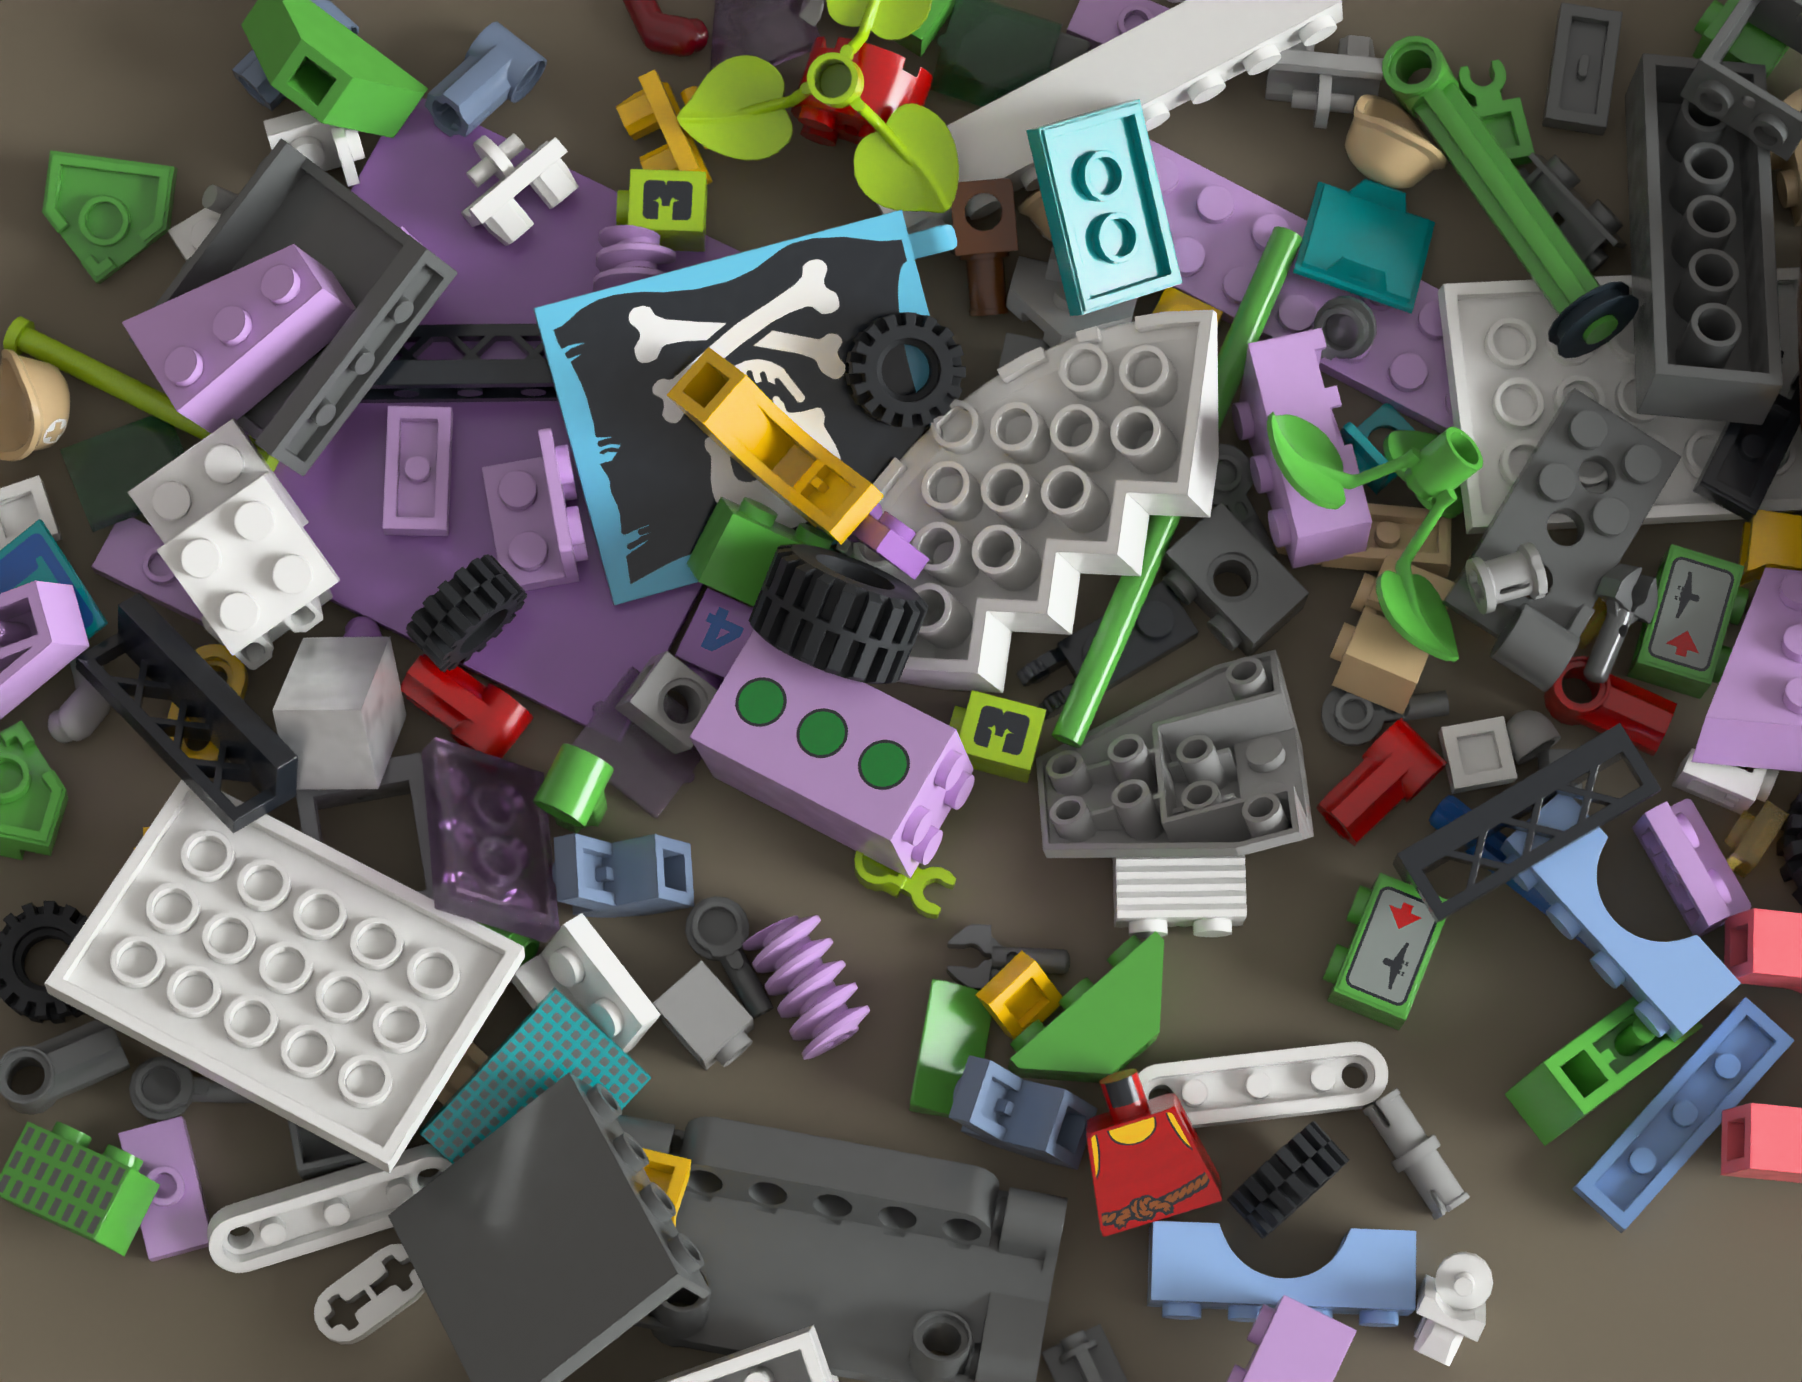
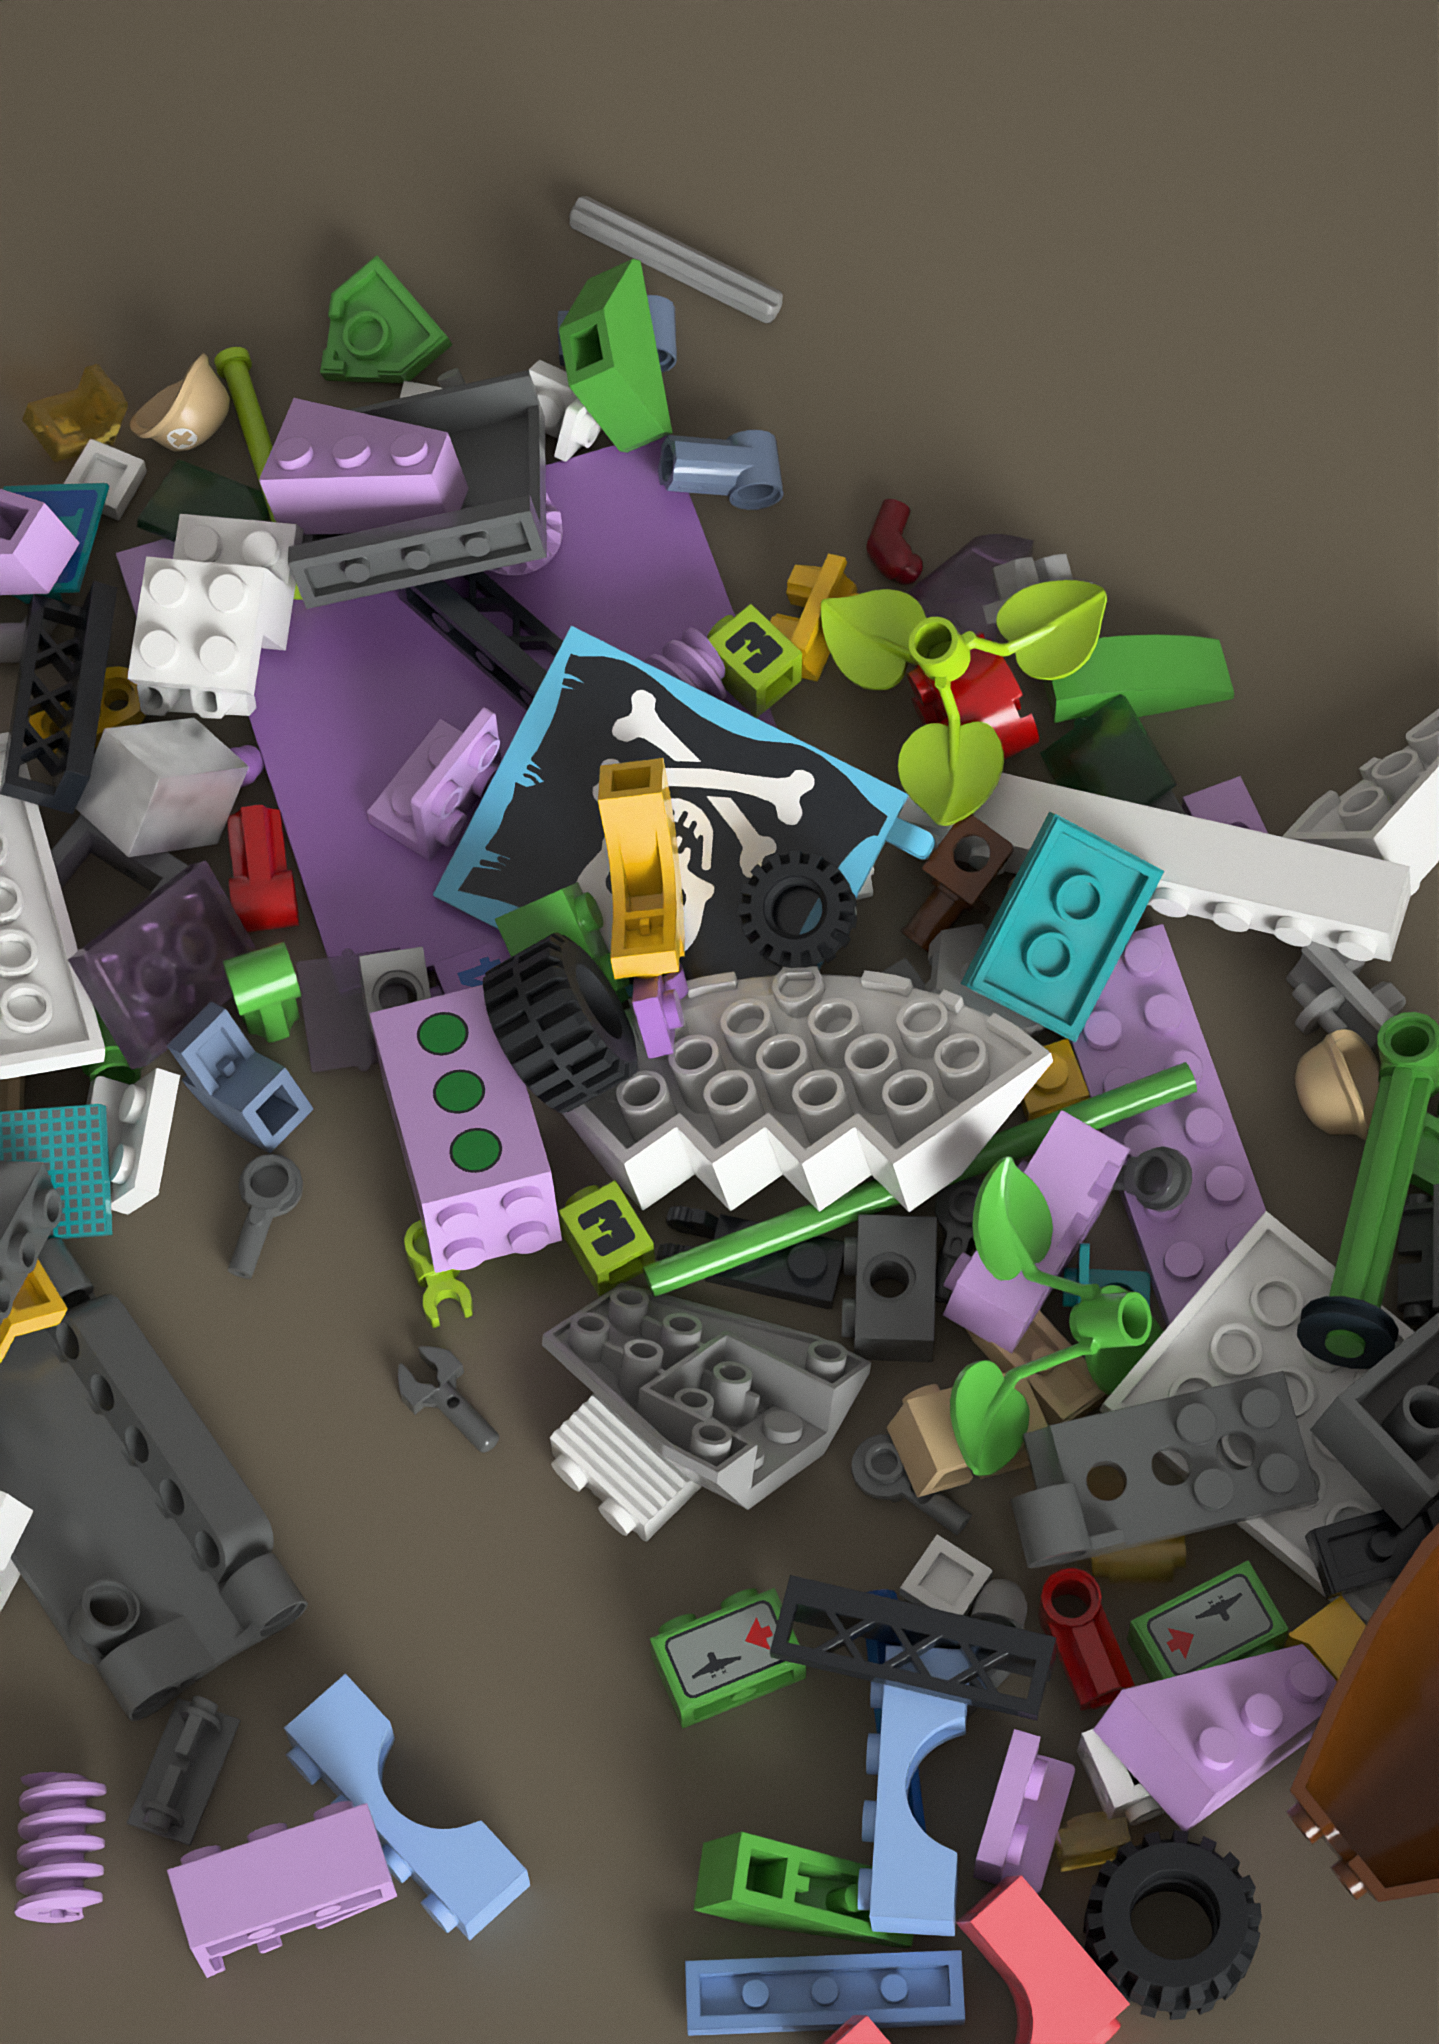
camera: 50 degrees right, 10 degrees down
(418, 471) = (394, 682): lavender plate -> none
(466, 612) = (317, 798): black tyre -> none
(540, 170) = (693, 553): white hips -> none
(705, 1017) = (194, 1234): light grey brick -> none
(807, 984) = (285, 1277): lavender piece -> none
(952, 1031) = (340, 1424): bright green slope -> none
(1019, 995) = (426, 1432): yellow plate -> none
(1021, 1114) = (335, 1508): sand blue brick -> none
(1102, 1022) = (466, 1506): bright green slope -> none
(1146, 1158) = (389, 1625): torso -> none
(1270, 1083) = (531, 1662): white plate -> none
(1288, 1179) = (474, 1742): black tyre -> none
(1365, 243) = (1246, 1140): teal piece -> none
(1391, 772) = (872, 1533): red piece -> none
(1416, 1154) = (594, 1824): light grey pin -> none
(1452, 1306) = (493, 1951): white hips -> none
(1506, 578) = (1078, 1451): light grey bush -> none
(1628, 599) = (1149, 1571): dark grey bar -> none

